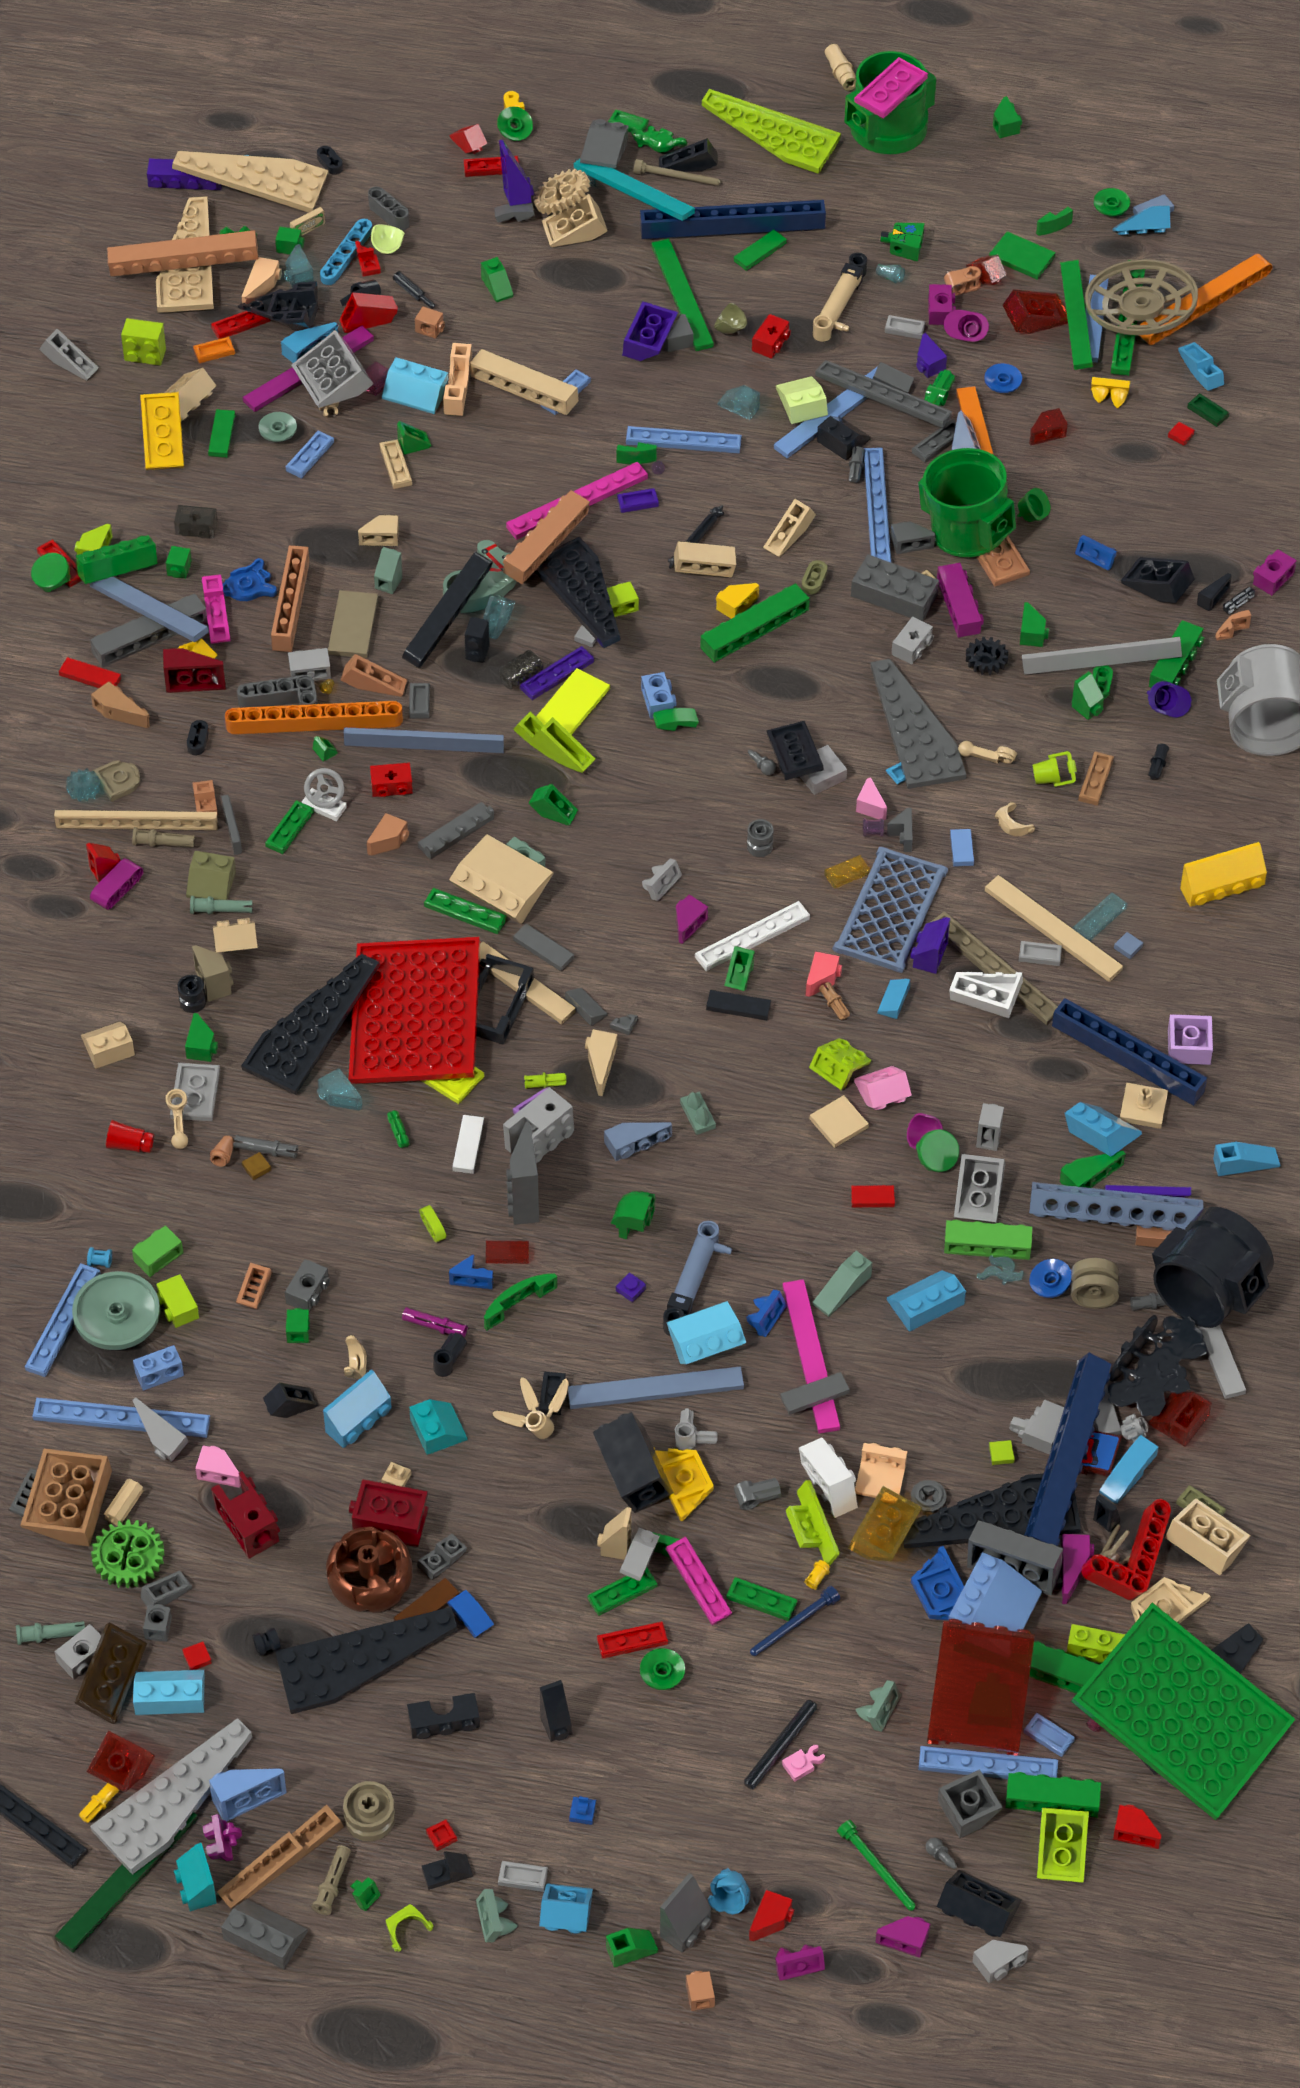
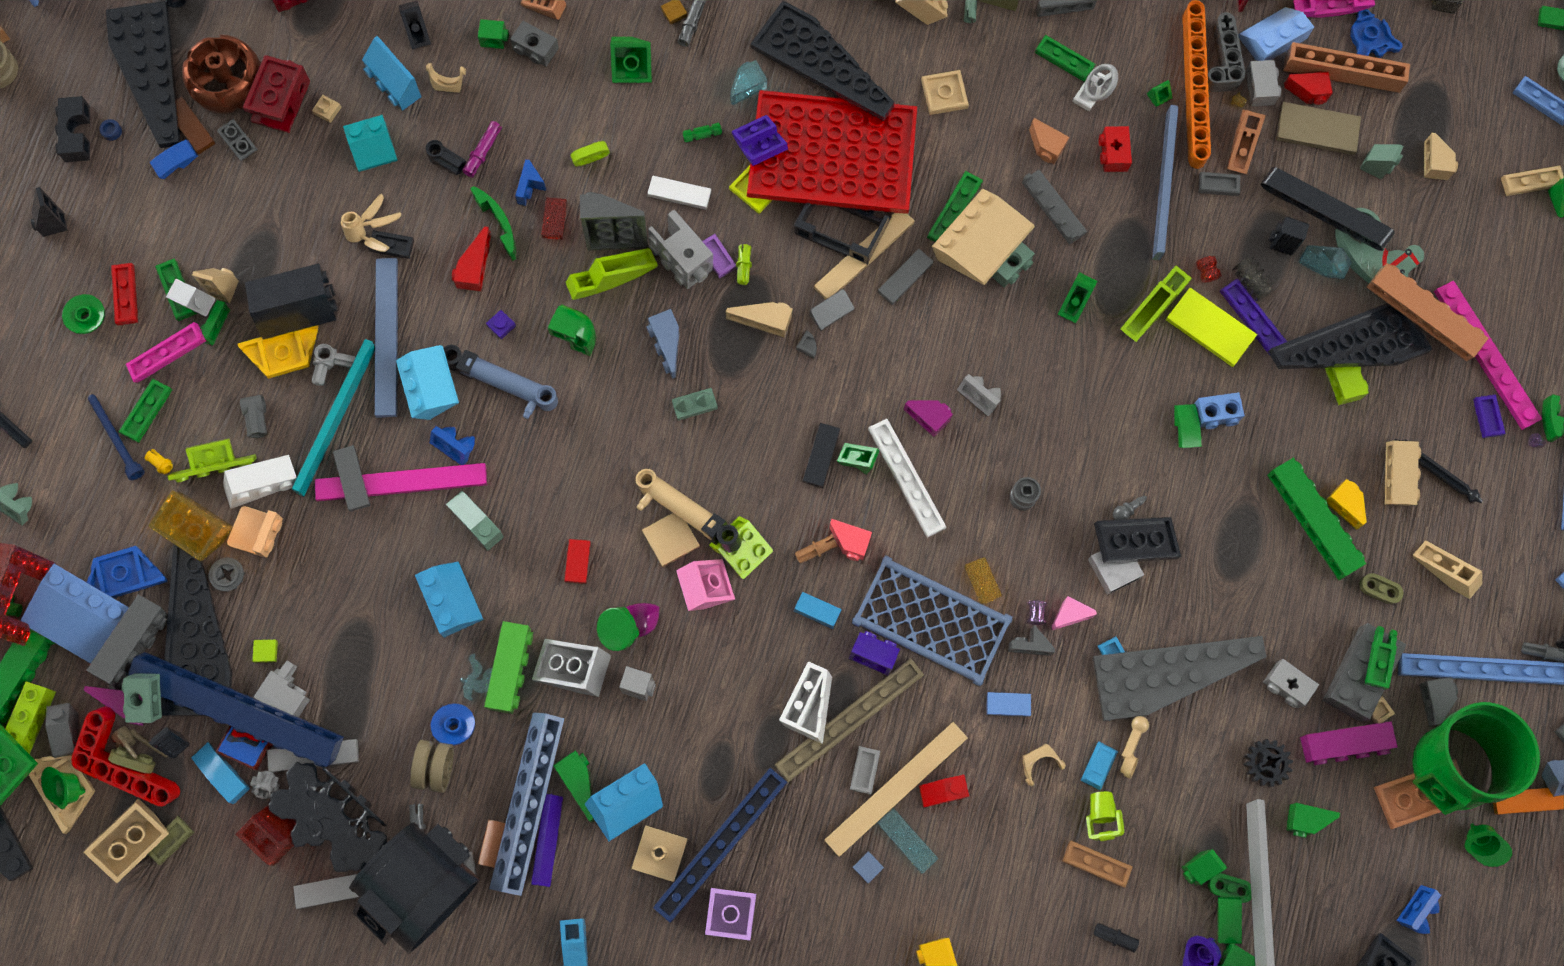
camera: 90 degrees right, 20 degrees up
(253, 654) = (1276, 34): none -> light blue slope
(312, 626) = (1310, 87): none -> red slope
(319, 1196) = (630, 60): none -> green slope
(335, 925) = (944, 92): none -> tan tile
(411, 1067) = (759, 140): none -> dark purple slope
(438, 1685) = (110, 129): none -> dark blue tile
(513, 705) = (1208, 269): none -> clear red wheel
(568, 1190) = (610, 272): none -> lime slope
(570, 1315) = (472, 264): none -> red slope
(748, 1418) = (334, 418): none -> teal tile
(830, 1072) = (711, 525): none -> tan piece
(884, 566) = (1381, 659): none -> green hinge
(1007, 779) = (1099, 765): none -> dark azure tile
(1050, 888) = (944, 791): none -> red slope
(1082, 1520) = (149, 689): none -> sand green brick
(1110, 1609) = (62, 729): none -> dark grey slope
(1129, 681) = (1230, 920): none -> green tile
(1130, 1544) = (142, 763): none -> olive plate
(1170, 1591) = (61, 787): none -> green piece

